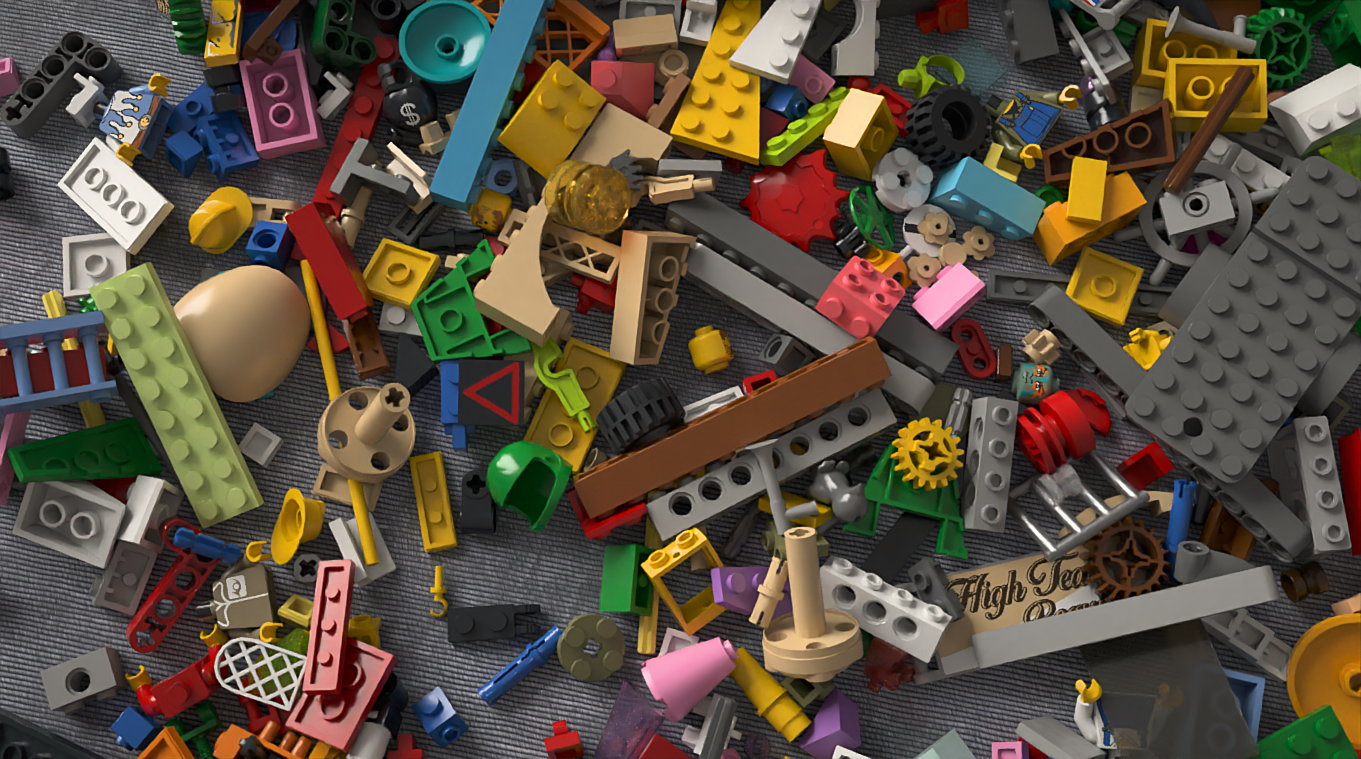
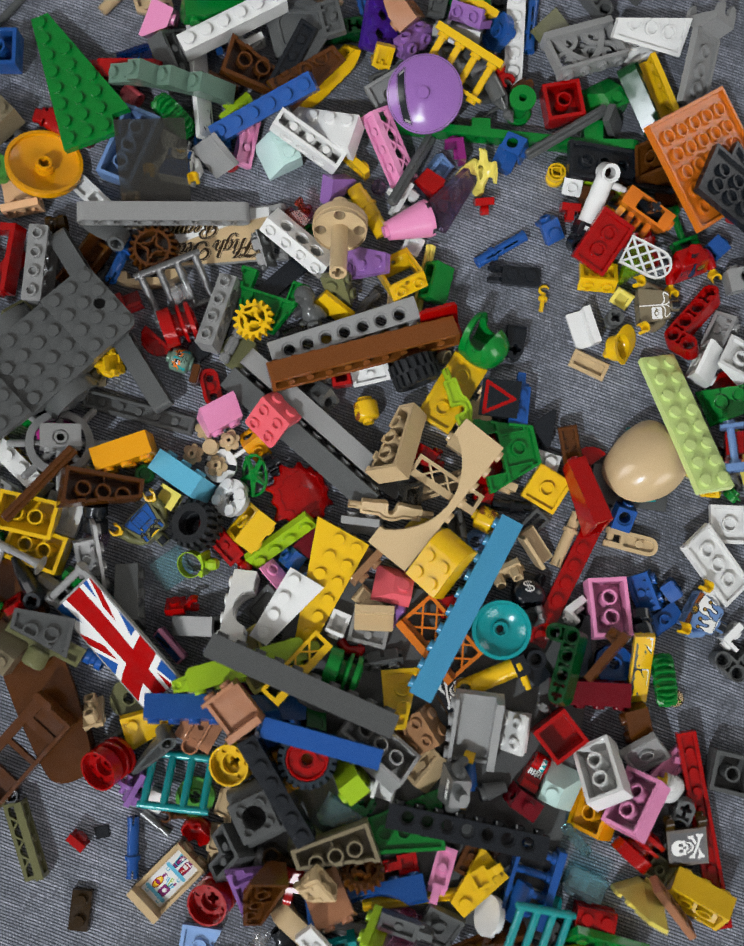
camera: 170 degrees left, 10 degrees up
(207, 546) = (672, 335): blue axle -> none
(221, 220) = (652, 539): yellow piece -> none
(260, 445) = (637, 398): white tile -> none
(329, 627) = (606, 277): plate -> none
(334, 390) = (589, 401): yellow piece -> none
(360, 171) = (565, 552): dark grey bracket -> none
(368, 432) = (575, 388): tan piece -> none
(433, 502) = (540, 349): yellow tile -> none
(576, 636) = (457, 242): olive plate -> none
(587, 196) = (427, 501): clear yellow wheel -> none
(623, 164) = (401, 521): dark grey piece -> none
(672, 63) = (359, 595): tan tile -> none
(770, 593) = (358, 255): tan pin -> none
(781, 514) = (348, 332): light grey piece -> none
(1040, 347) = (172, 379): tan gear -> none
(1086, 190) = (123, 459): yellow tile -> none
(1104, 286) = (125, 411): yellow tile -> none

